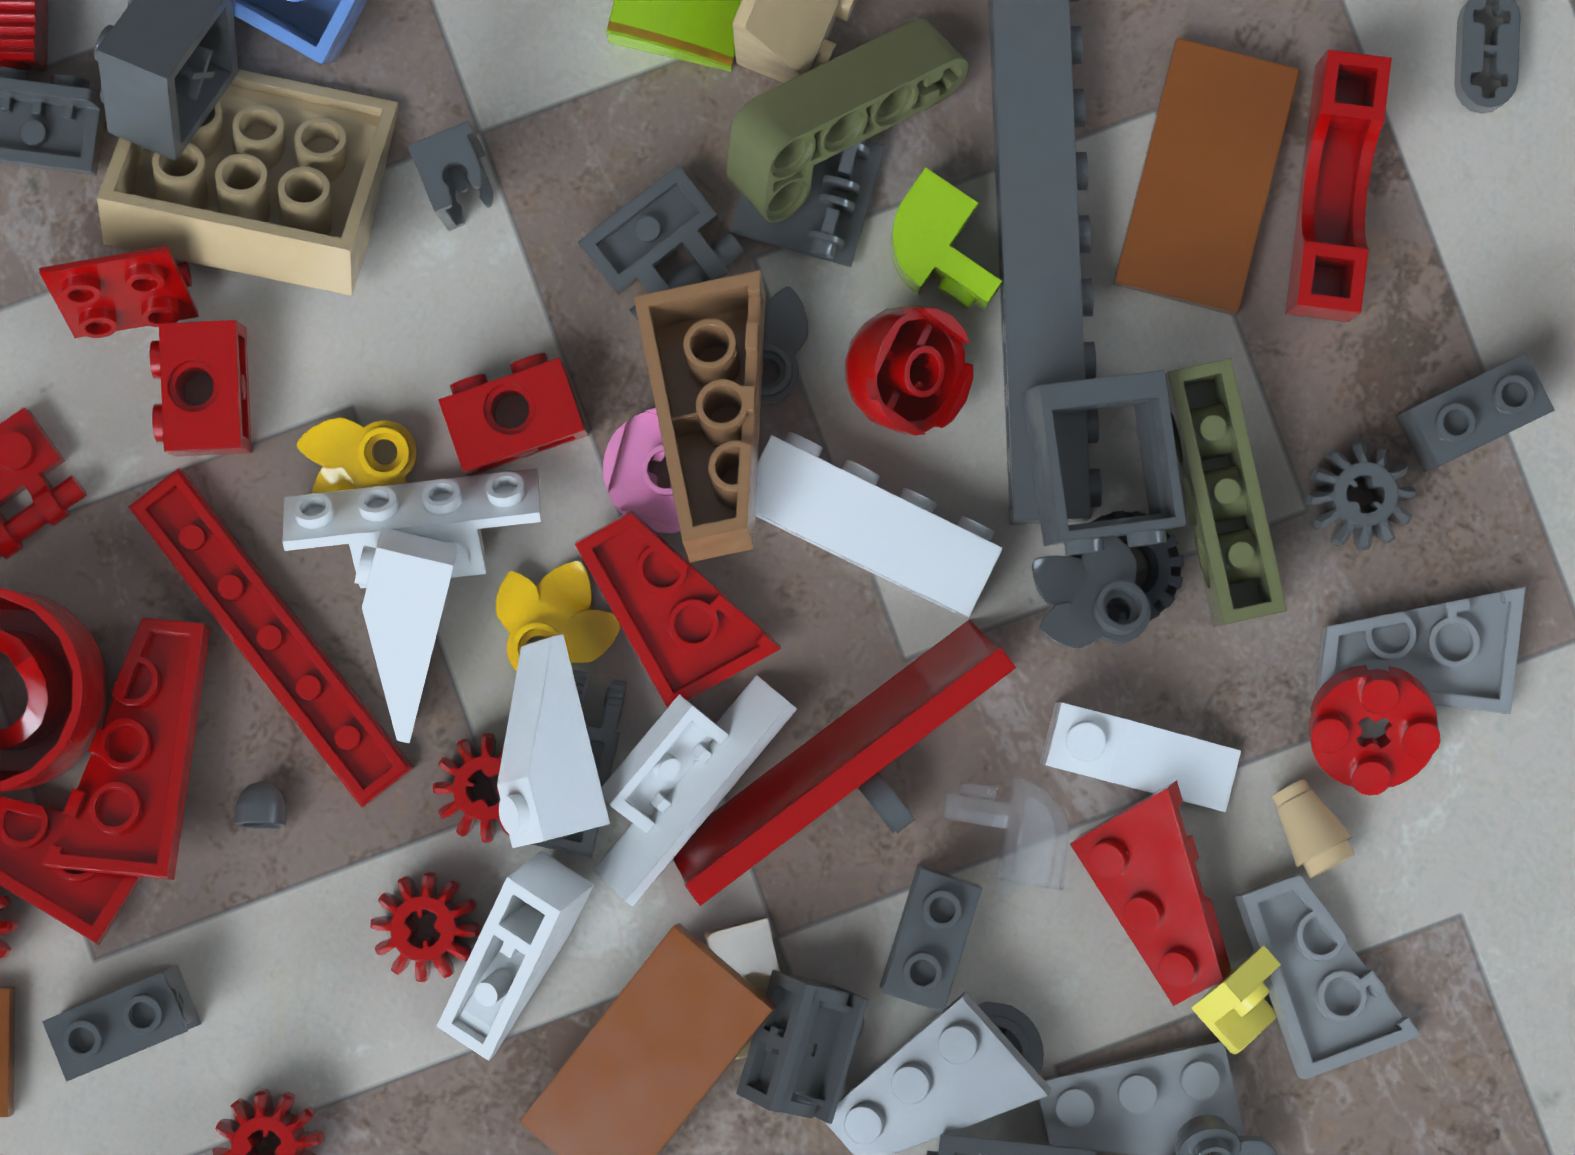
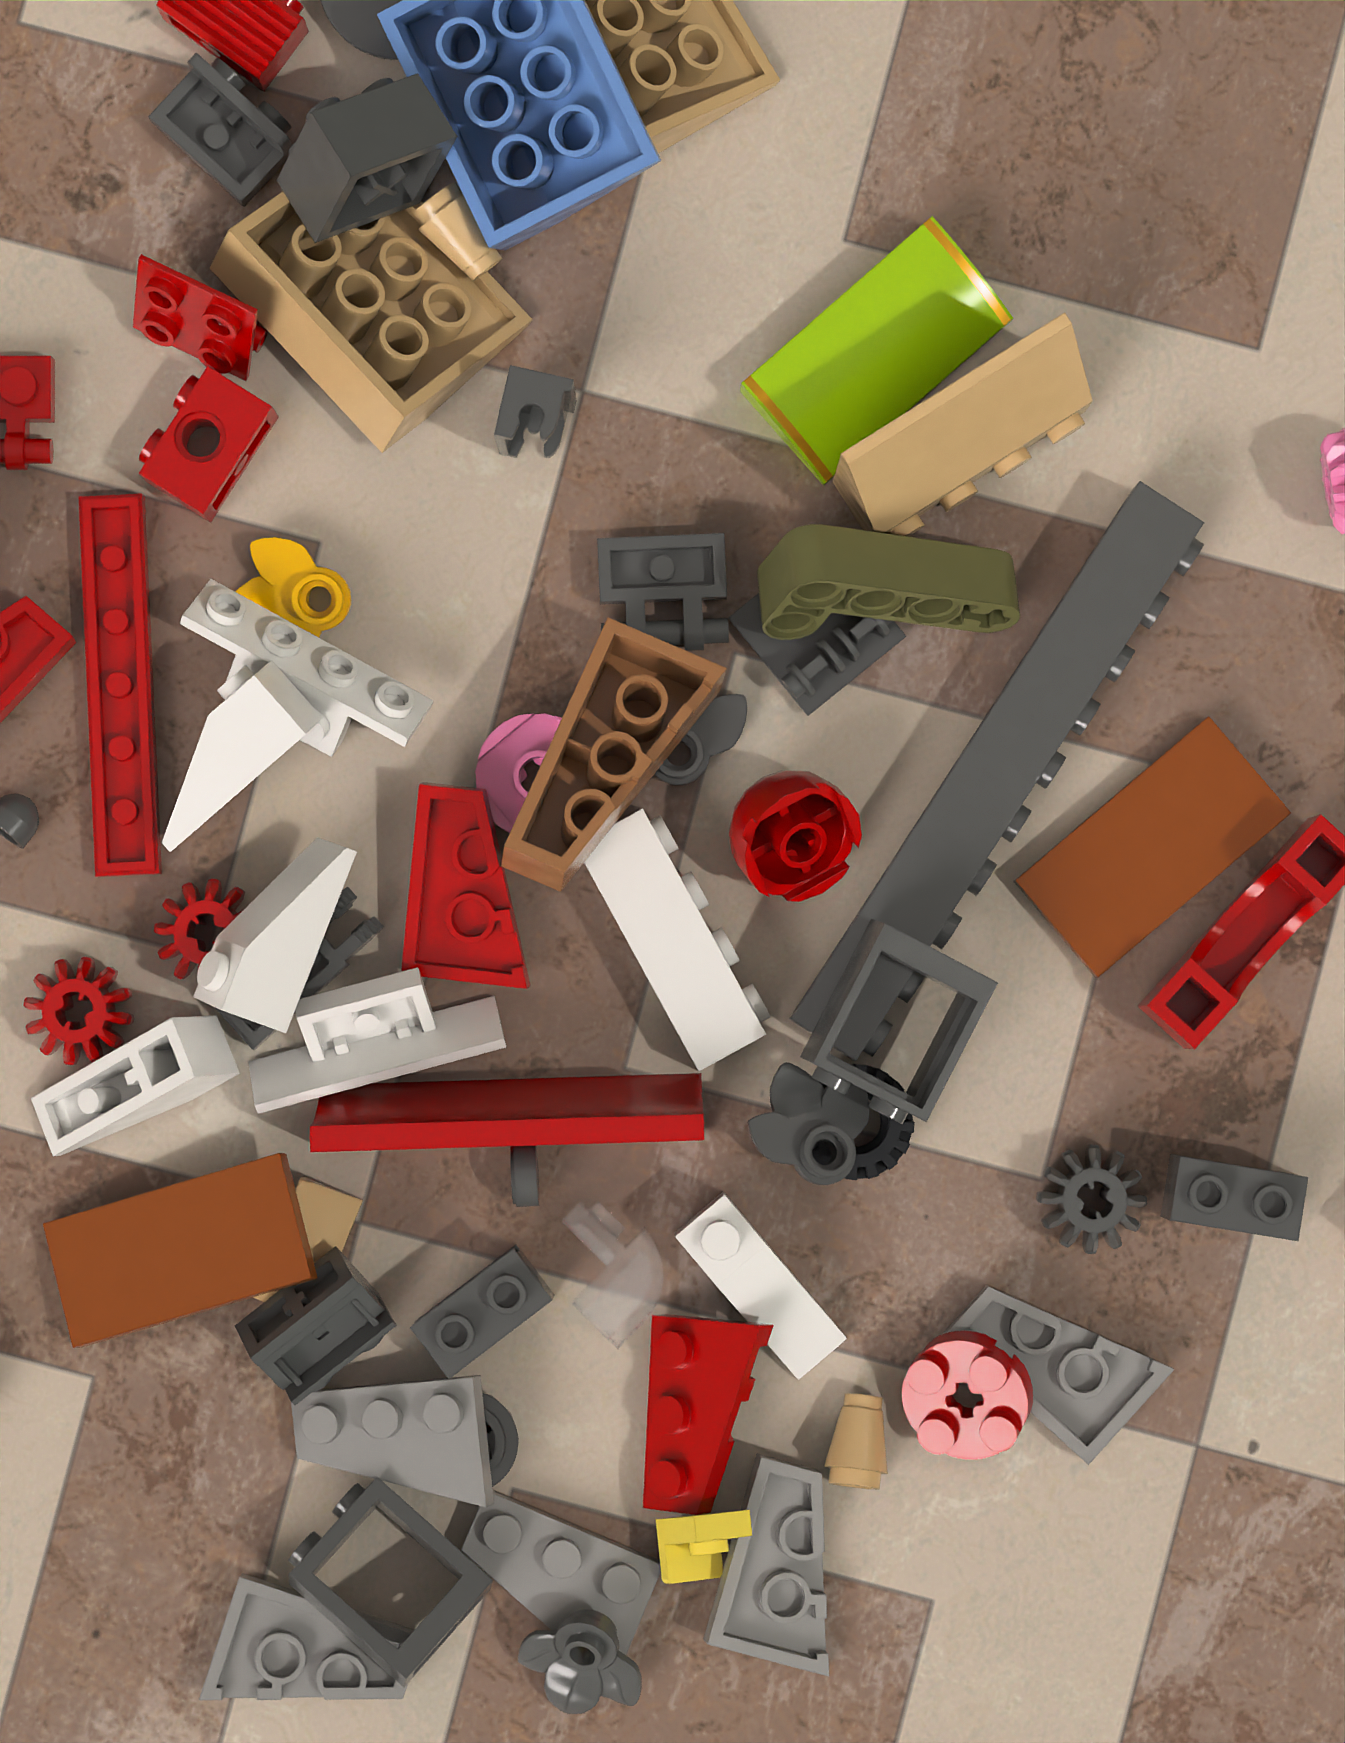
camera: 30 degrees right, 0 degrees up
(285, 72) = (455, 232): none -> tan cone
(551, 420) = (472, 670): red brick -> none
(555, 608) = (367, 825): yellow plate -> none
(923, 239) = (883, 732): lime brick -> none
(1223, 494) = (978, 1117): olive brick -> none

